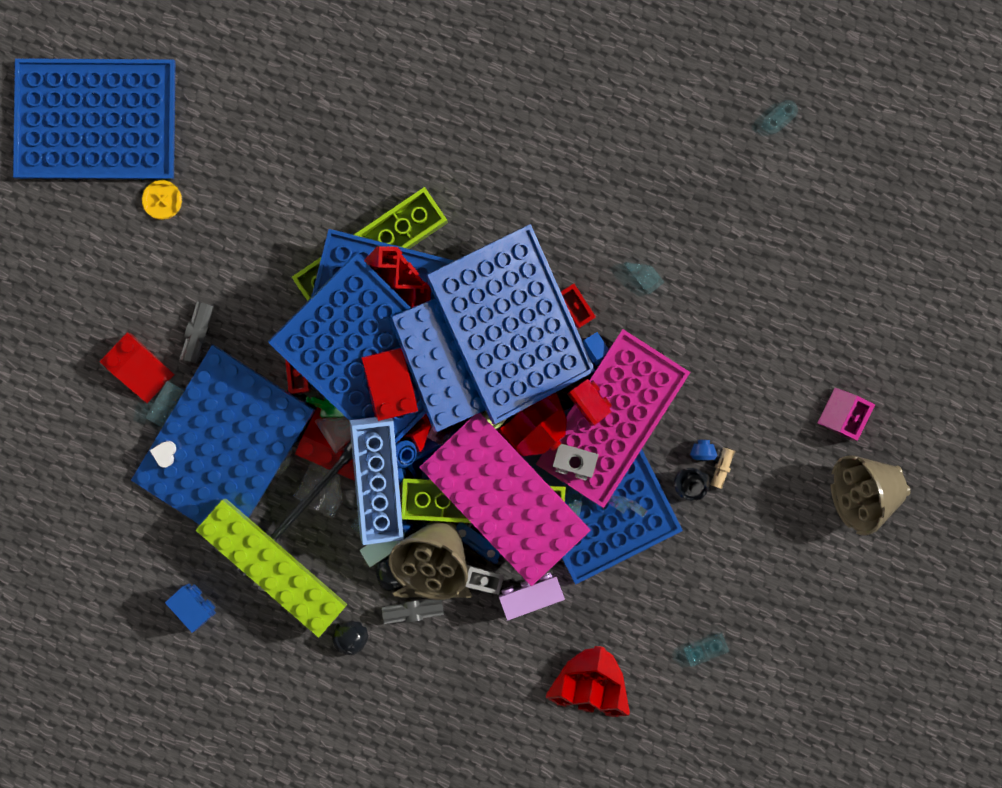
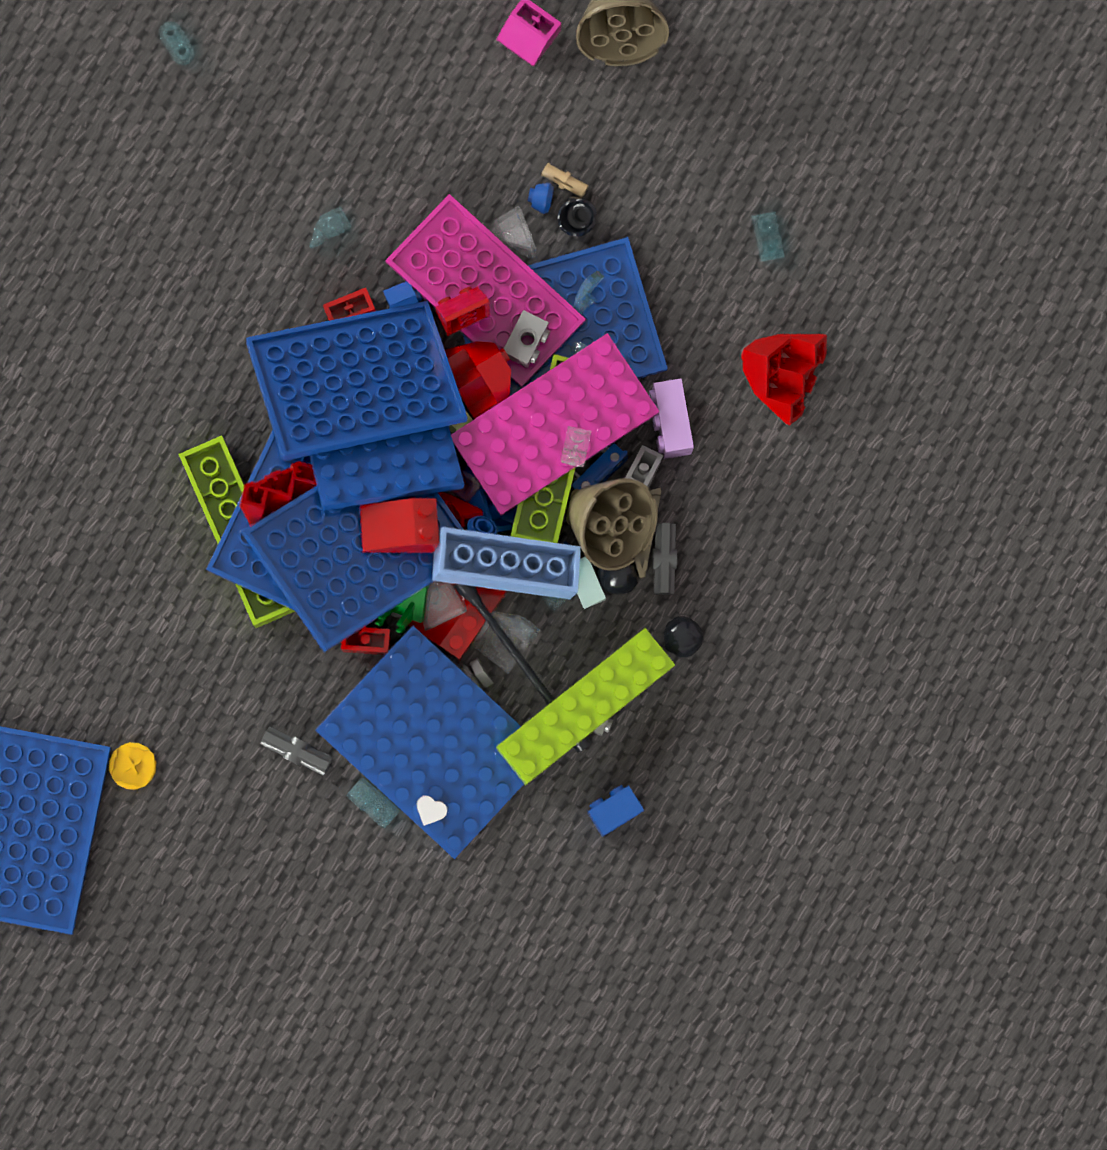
camera: 85 degrees left, 5 degrees down
(137, 367) = (324, 827): red slope -> none
(289, 473) = (481, 673): none -> light grey tile
(486, 521) = (575, 446): none -> clear bracket
(667, 433) = (515, 234): none -> clear slope

